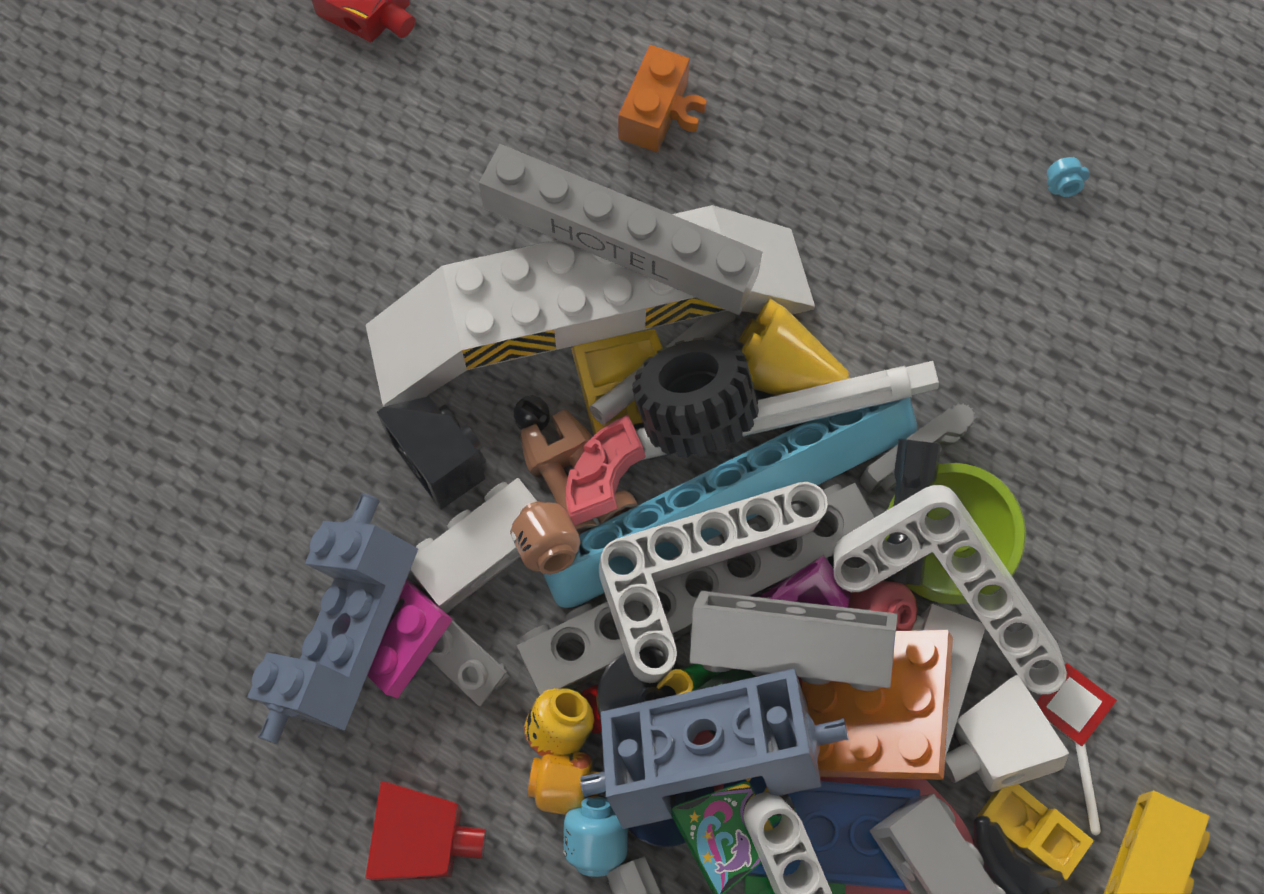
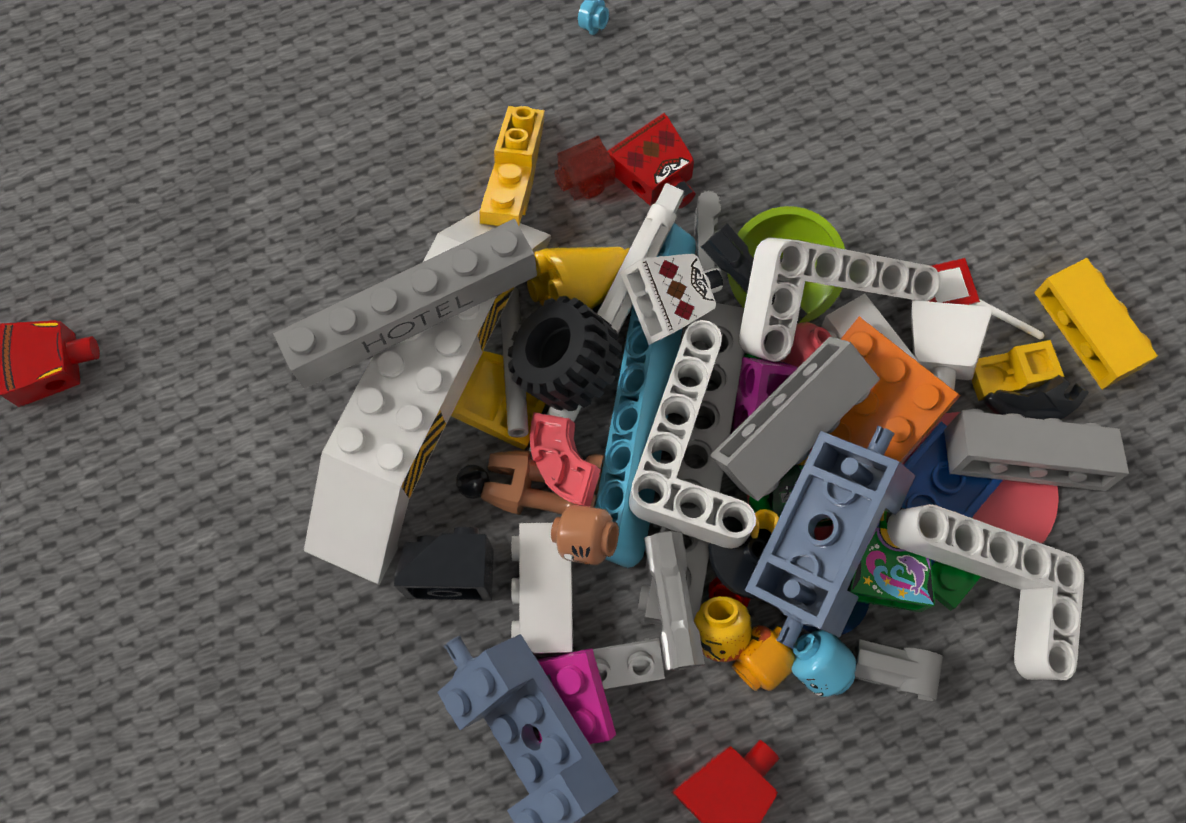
camera: 50 degrees left, 0 degrees up
(519, 683) = (679, 633): none -> light grey axle
(658, 99) = (312, 219): orange brick -> none
(830, 445) = (670, 292): none -> white torso
(850, 226) = (514, 166): none -> yellow slope
(901, 286) = (585, 169): none -> clear red brick
(962, 341) = (652, 159): none -> red torso

